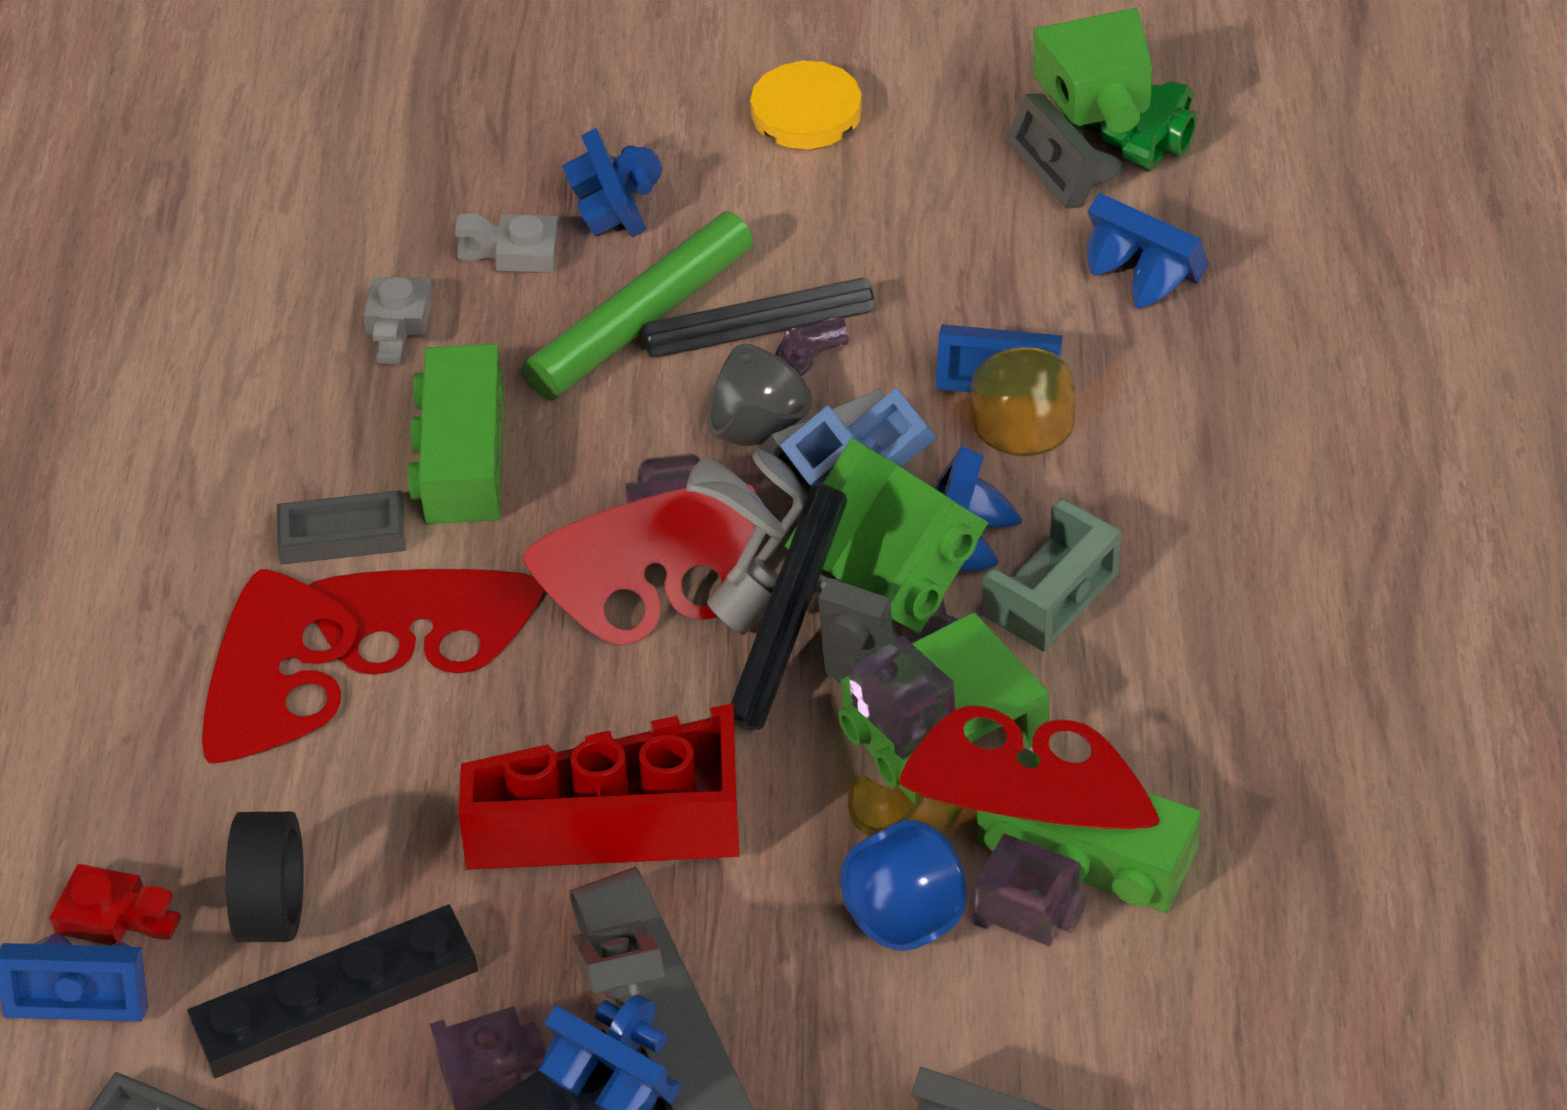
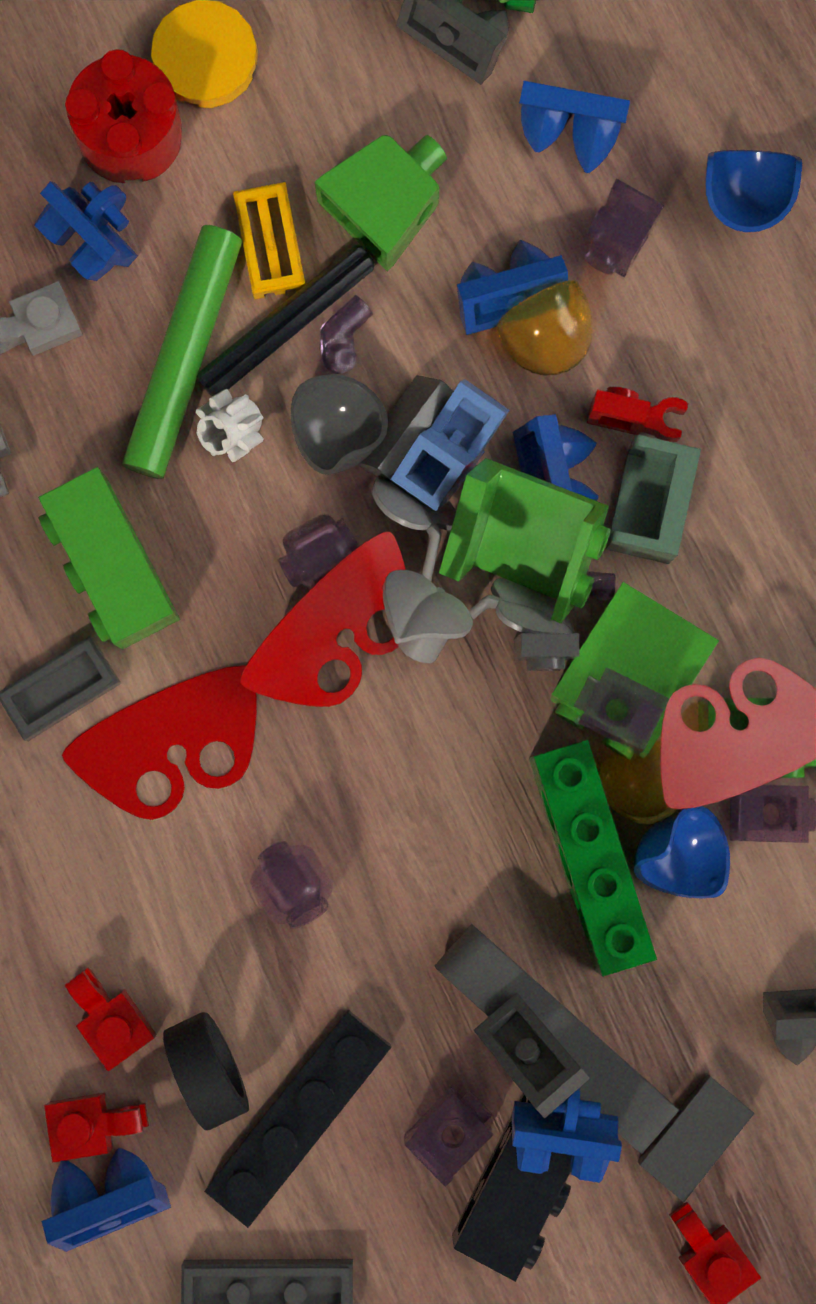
camera: 30 degrees left, 35 degrees up
(197, 824) = (113, 1025): none -> red plate
(247, 690) = (73, 876): red piece -> none
(454, 741) = (291, 884): none -> head
(606, 799) = (436, 868): red wedge -> none
(648, 366) = (229, 425): none -> white gear
(698, 115) = (125, 117): none -> red brick
(773, 284) = (278, 283): none -> yellow tile
(787, 606) = (478, 645): black axle -> none
(800, 858) = (592, 859): none -> green brick
(914, 248) = (383, 194): none -> bright green torso
(1049, 479) = (624, 412): none -> red plate
(1144, 350) = (621, 229): none -> clear purple brick
(1292, 357) = (752, 187): none -> blue helmet

